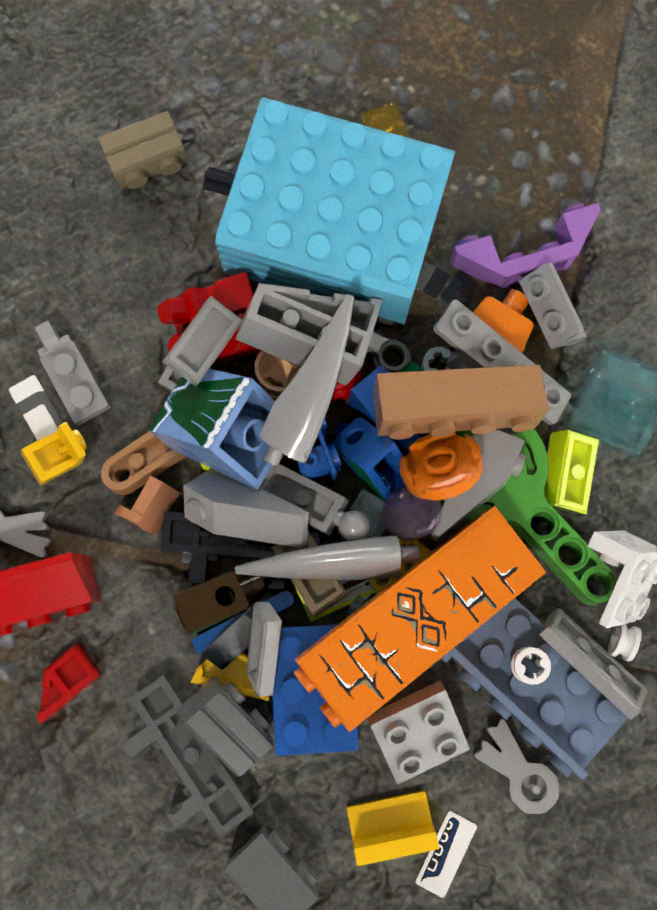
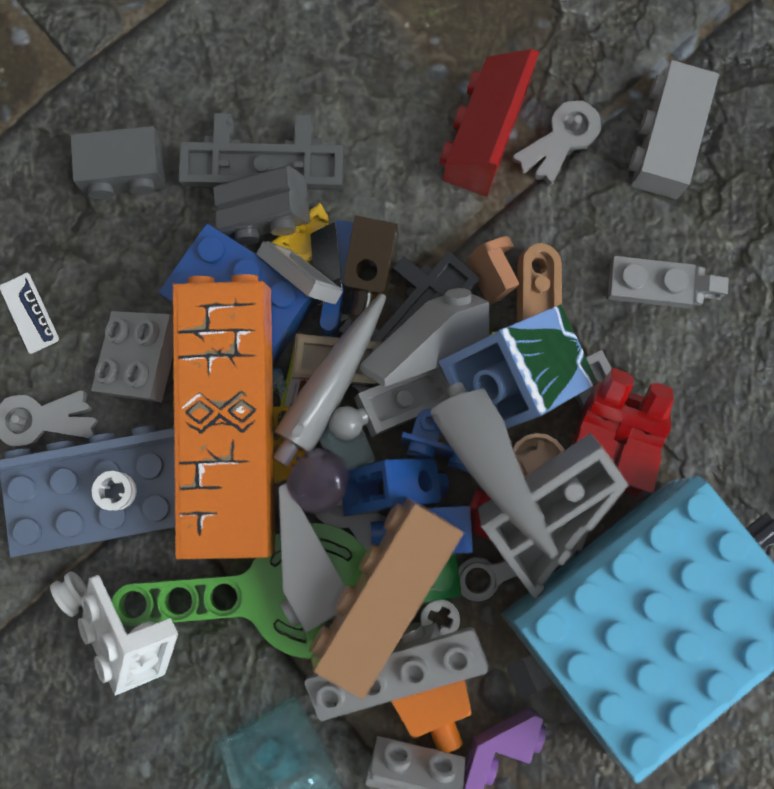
camera: 125 degrees right, 0 degrees up
(35, 407) = (646, 236): white sticker -> none
(55, 454) = (597, 221): yellow bracket -> none
(66, 680) = (397, 111): red tile -> none
(202, 341) = (610, 403): light grey tile -> none
(386, 119) = (718, 749): clear yellow plate -> none
(391, 827) = (80, 281): yellow panel -> none
(441, 466) = (336, 533): orange tile -> none
(570, 470) = (253, 665): neon yellow slope -> none
(594, 663) = (74, 551): light grey tile -> none

